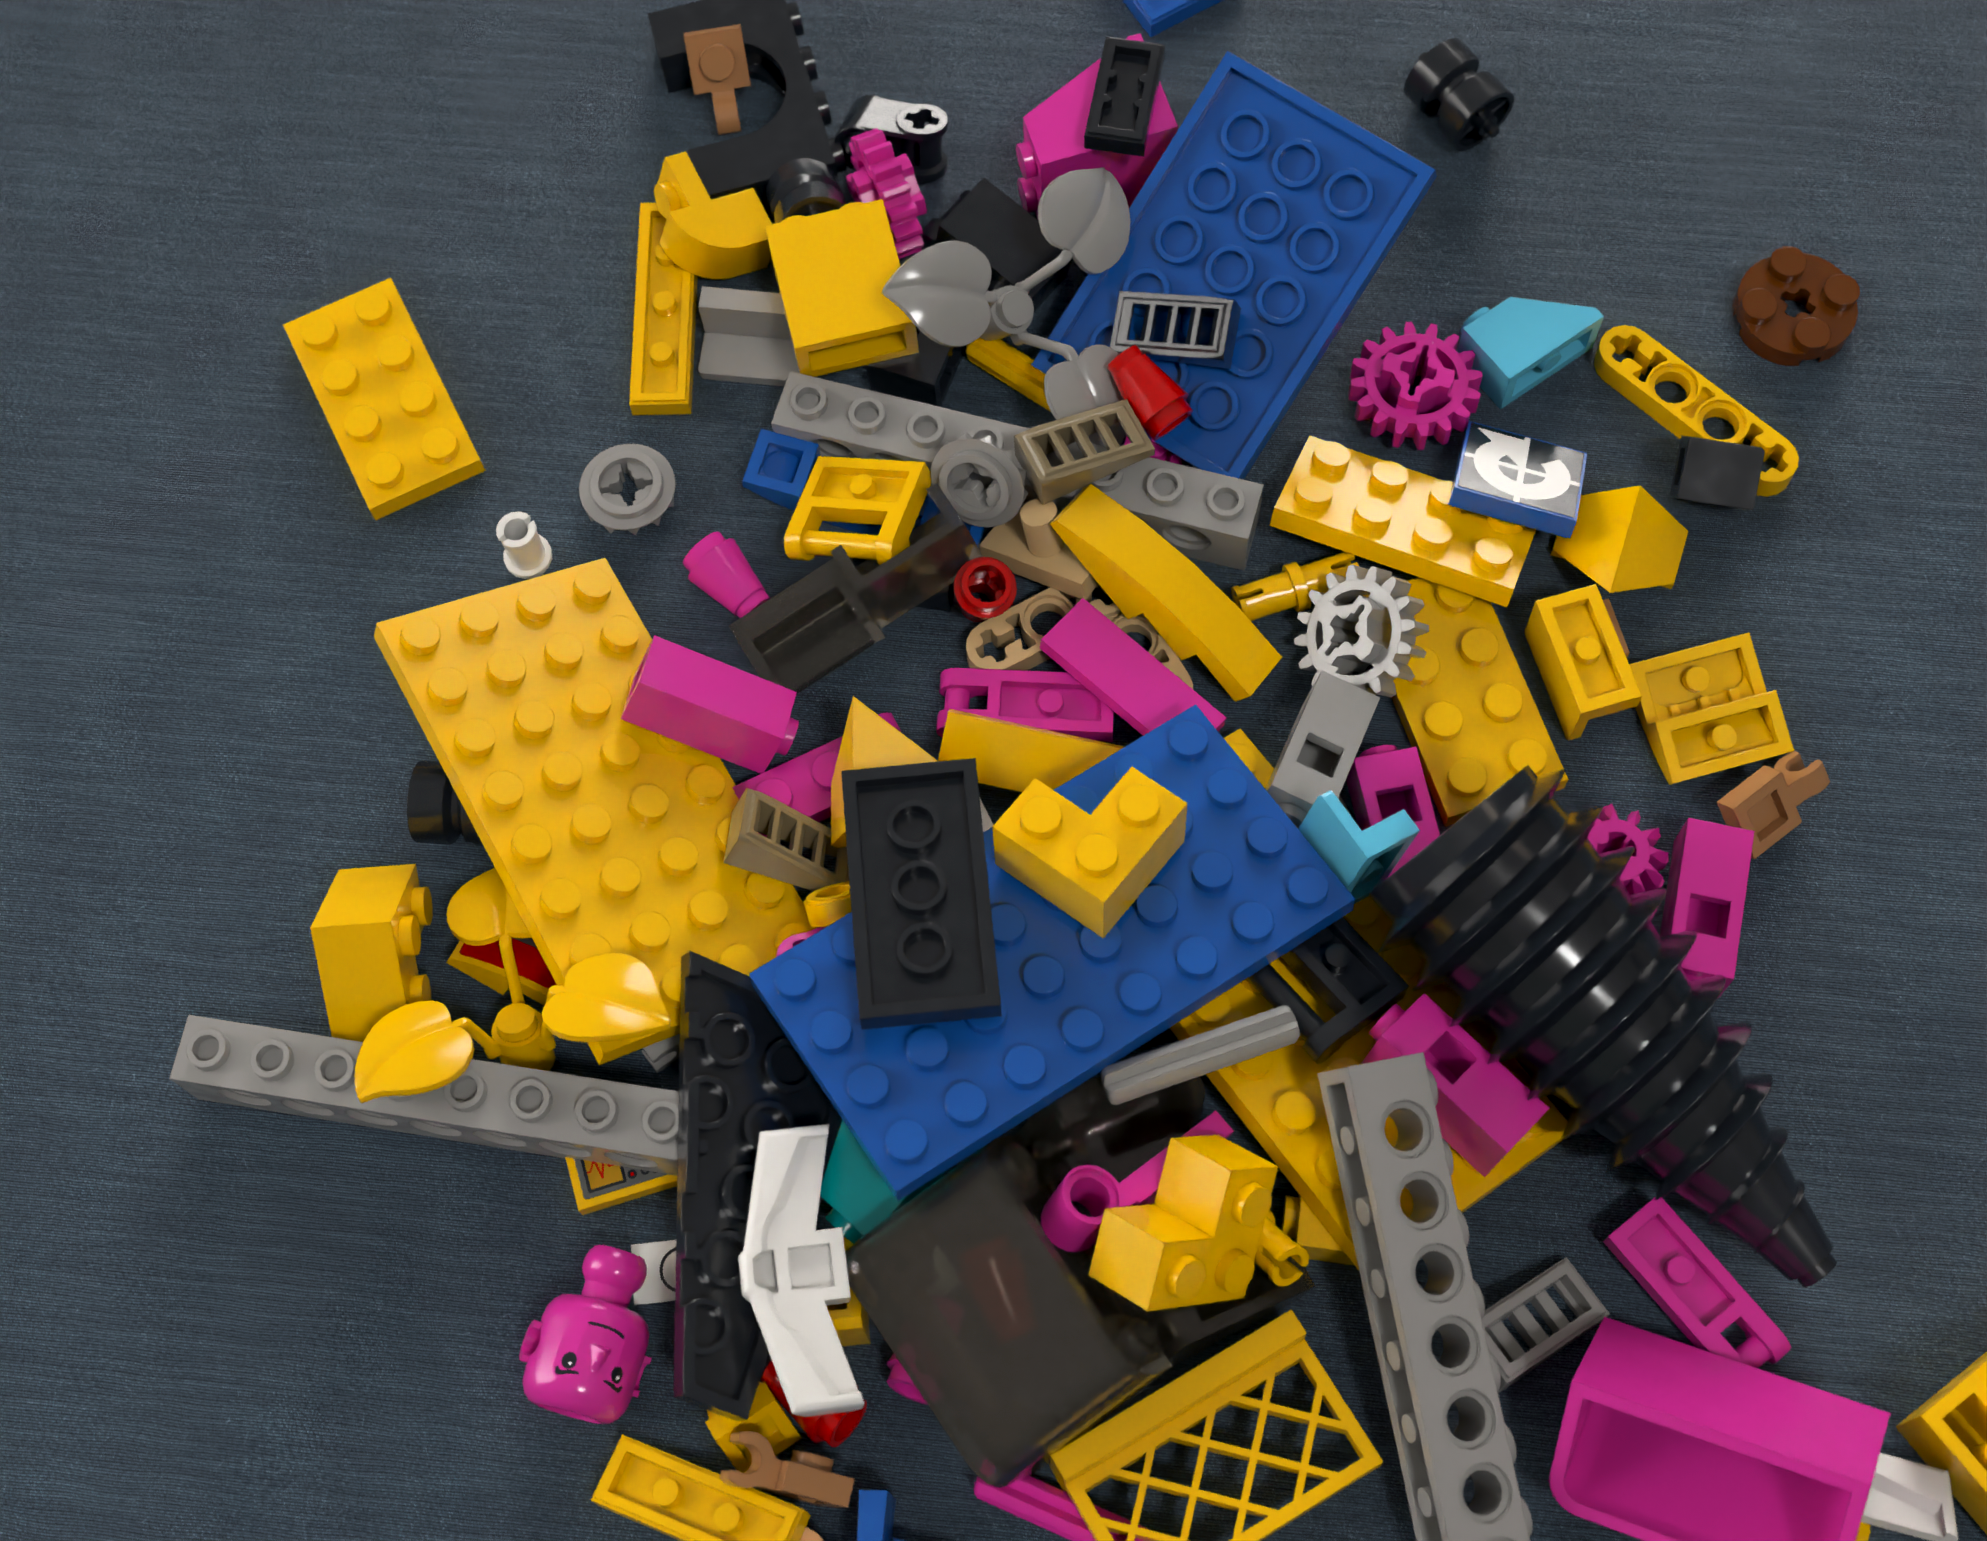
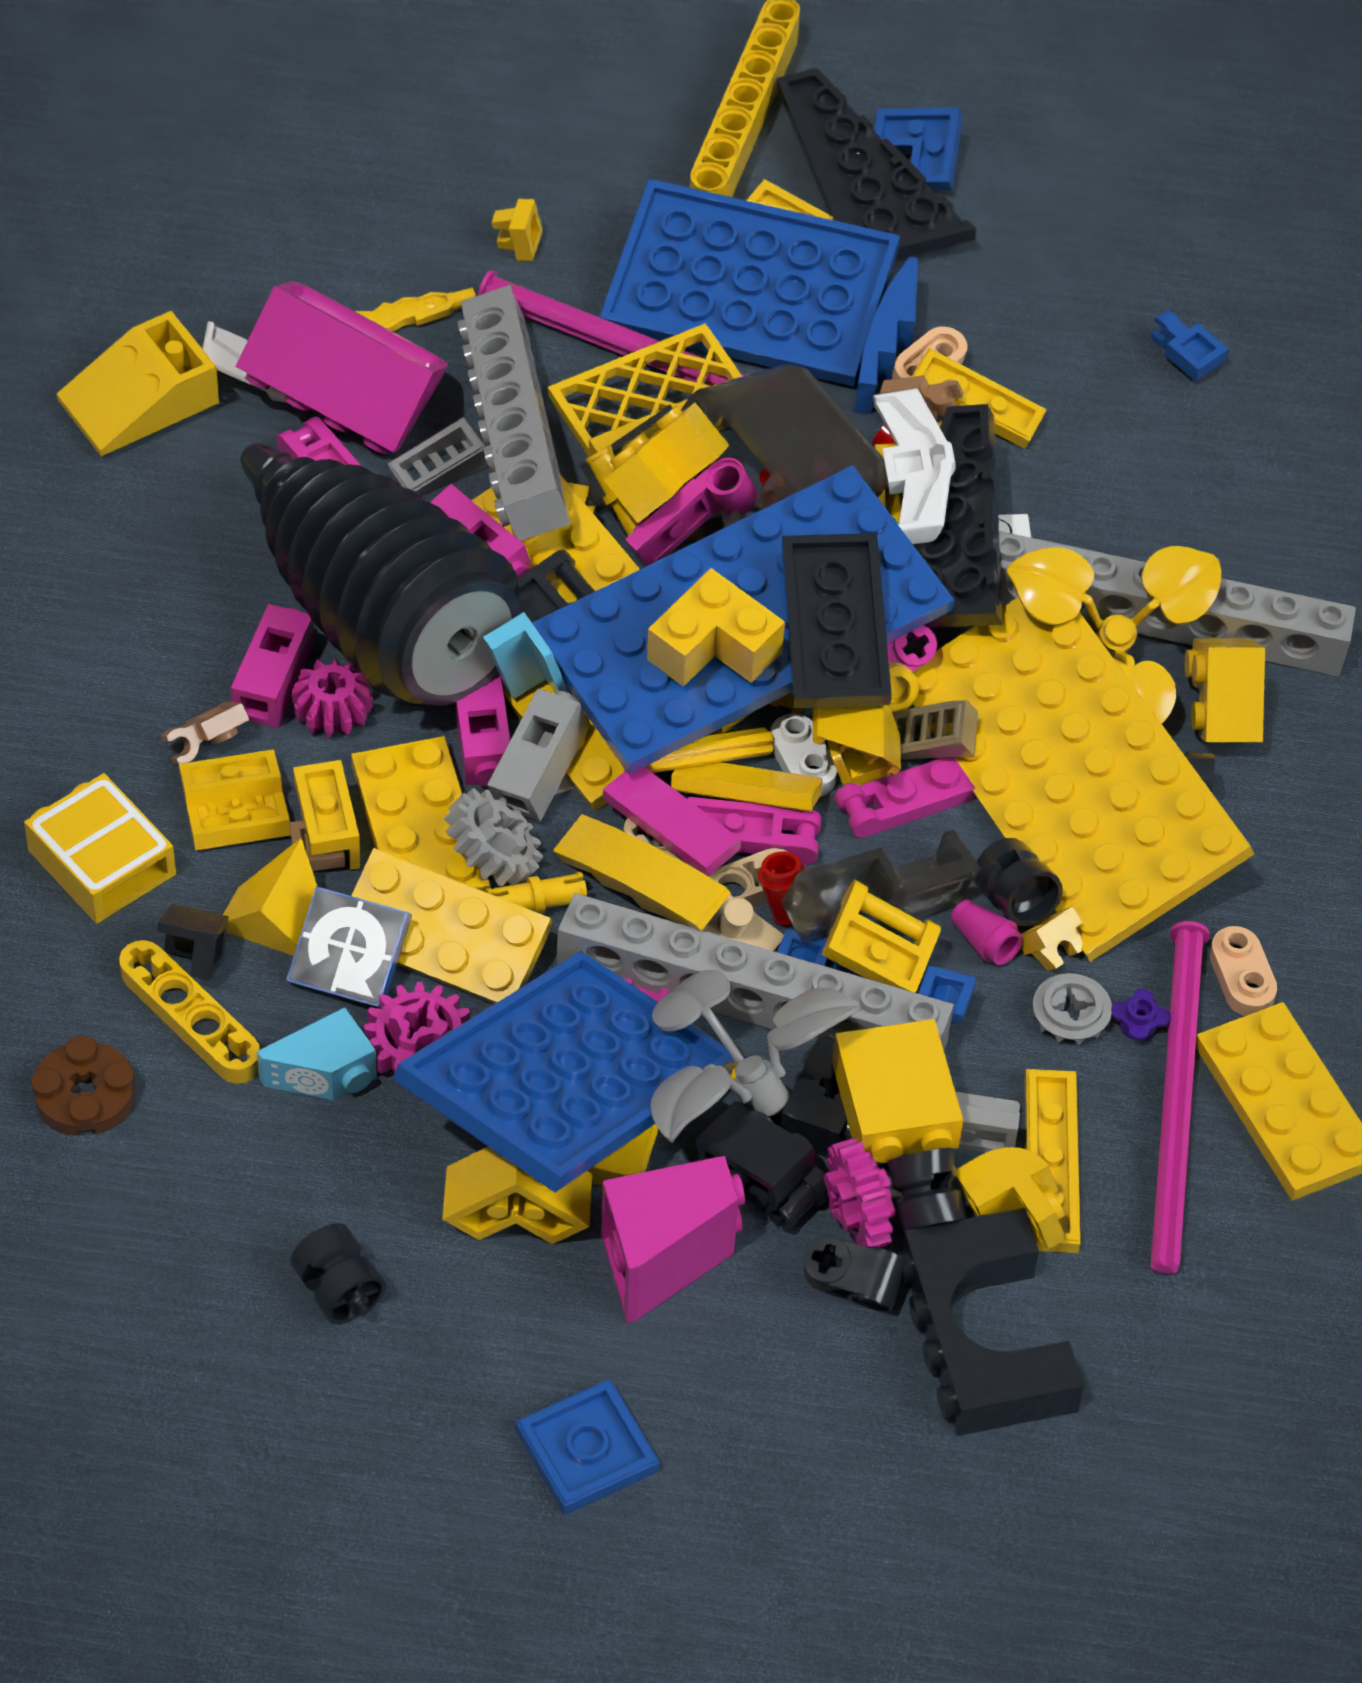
camera: 175 degrees right, 15 degrees down
(412, 555) = (1240, 967): none -> light nougat plate
(509, 392) = (1177, 1098): none -> dark pink axle
(525, 551) = (1150, 961): white pin -> none
(548, 499) = (1138, 1026): none -> dark purple plate
(590, 1346) = (1053, 473): dark pink piece -> none
(649, 575) = (1045, 936): none -> yellow tile
(681, 598) = (1019, 882): none -> black wheel
(711, 706) = (993, 812): dark pink brick -> none
(718, 67) = (1014, 1327): medium nougat plate -> none
(969, 497) = (784, 936): light grey gear -> none
(1074, 474) = (713, 919): dark tan slope -> none
(1124, 96) = (649, 1188): black plate -> none
(1150, 392) = (642, 986): red cone -> none
(1199, 1055) = (636, 554): light grey axle -> none
(1222, 336) = (617, 1026): black slope -> none
(1866, 608) = (100, 848): none -> yellow brick

